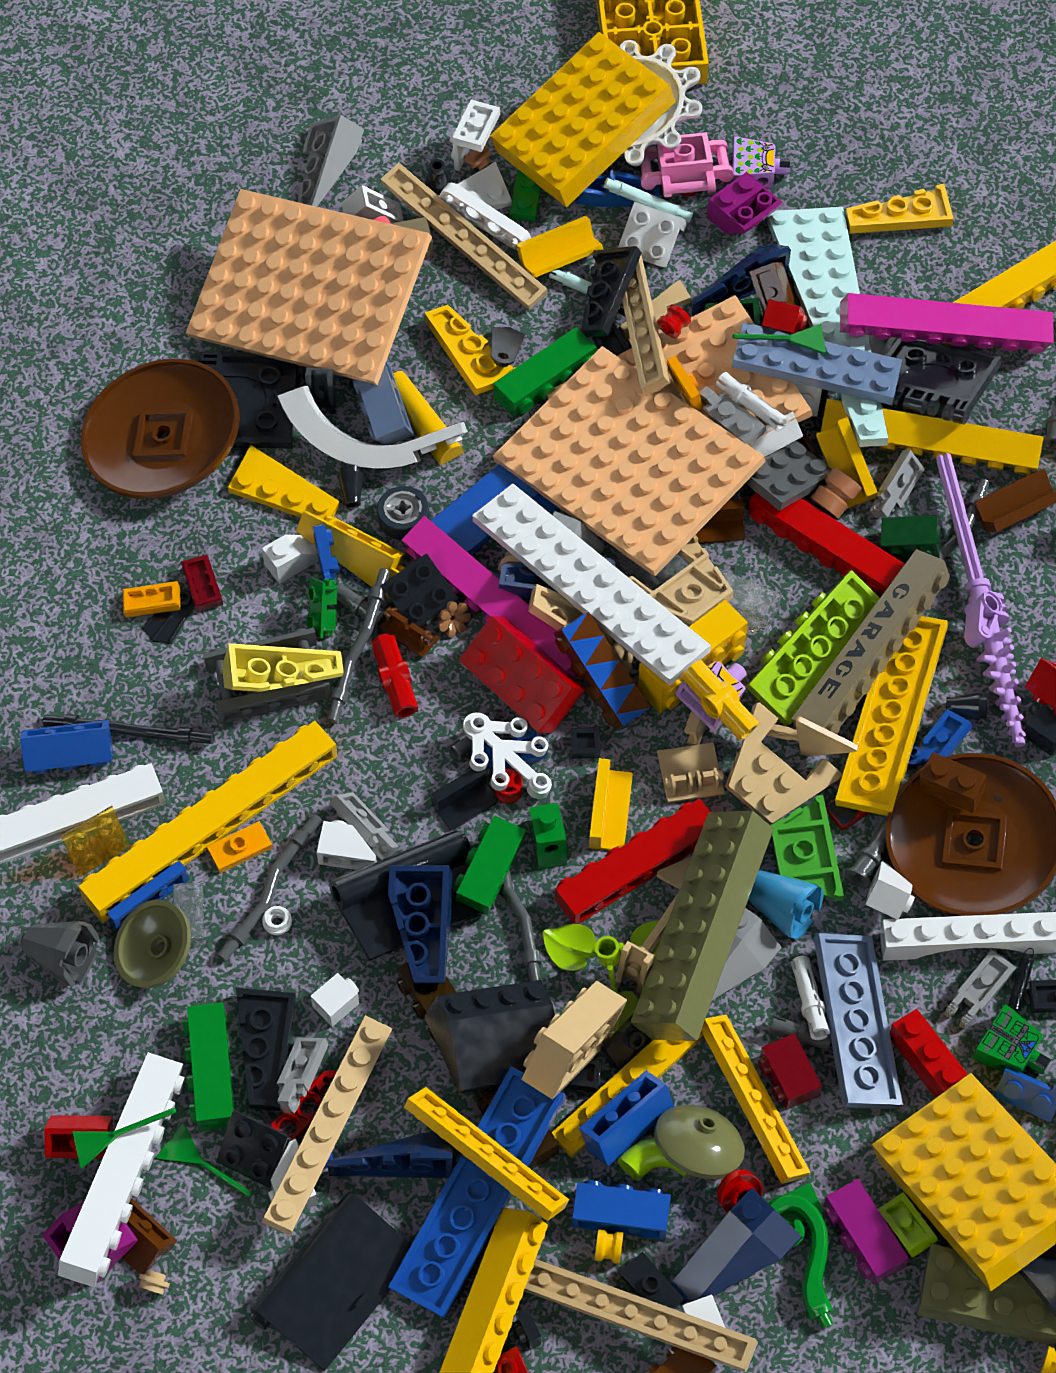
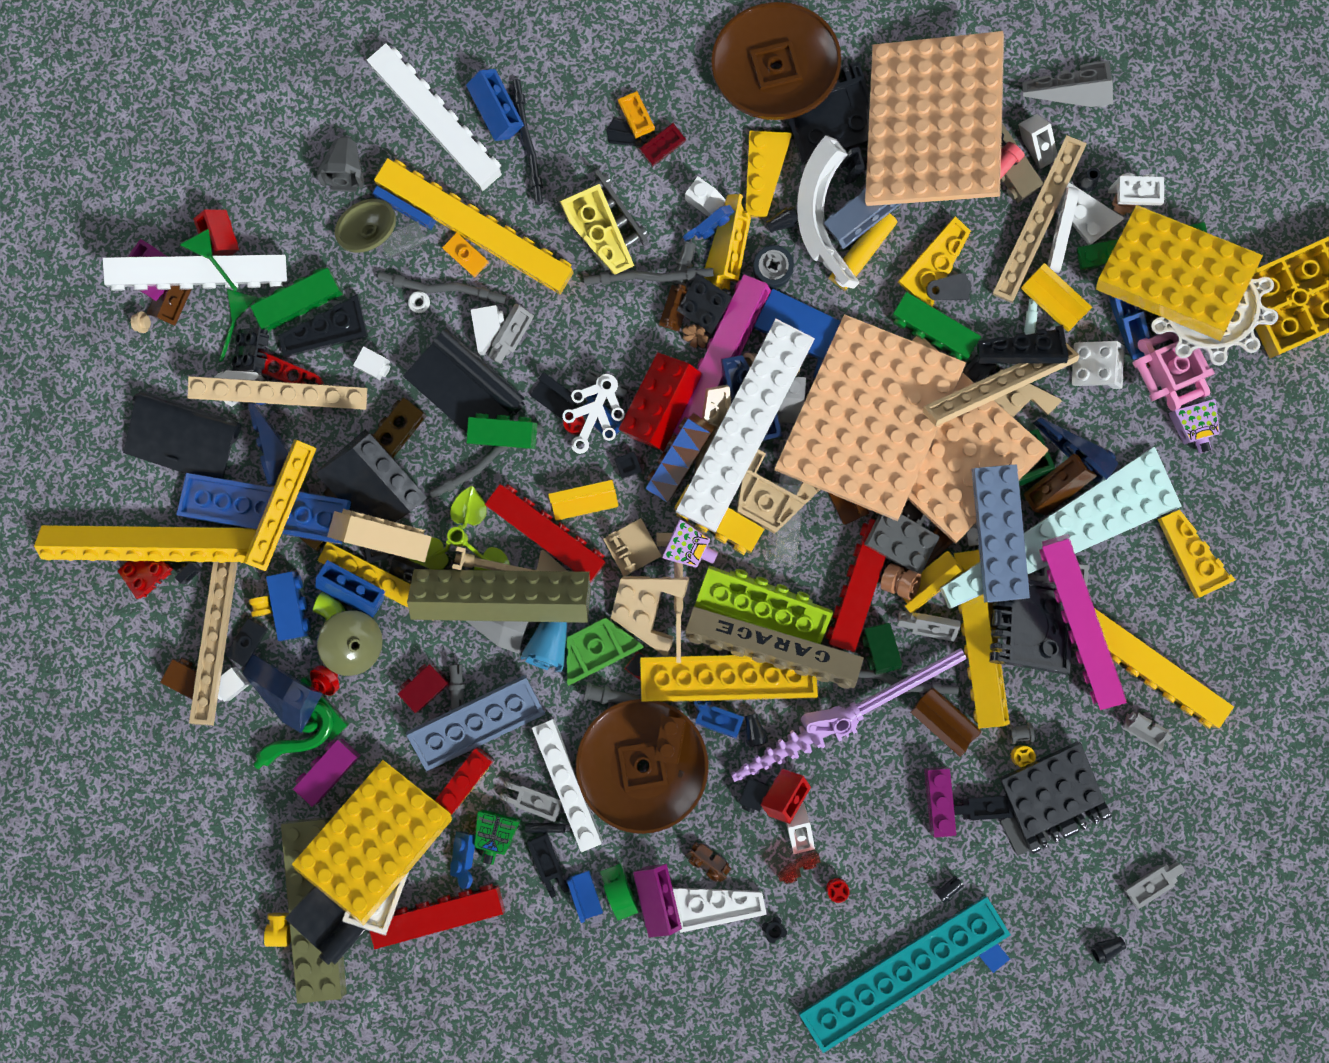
camera: 80 degrees right, 25 degrees up
(95, 841) = (428, 156): clear yellow hinge -> none
(300, 1071) = (310, 359): light grey hinge -> none
(319, 596) = (660, 240): green hinge -> none
(394, 675) = (634, 310): red piece -> none
(423, 912) = (447, 399): dark blue wedge -> none
(547, 830) = (543, 463): green torso -> none
(647, 199) = (1126, 350): light aqua piece -> none
(673, 321) = (1003, 410): red wheel -> none
(685, 383) = (947, 438): light orange plate -> none
(720, 700) = (673, 552): yellow piece -> none
(731, 416) = (928, 483): light grey hinge -> none
(741, 205) = (1149, 427): magenta slope -> none
(744, 396) = (949, 485): white pin -> none
(754, 1099) = (396, 669): yellow plate -> none
(776, 440) = (926, 522): white sticker -> none
(784, 317) = (1035, 495): red brick -> none
(809, 338) = (1017, 519): green piece -> none
(812, 1007) = (473, 689): white pin -> none
(889, 892) = (576, 717): white slope -> none
(907, 1225) = (336, 798): lime plate -> none

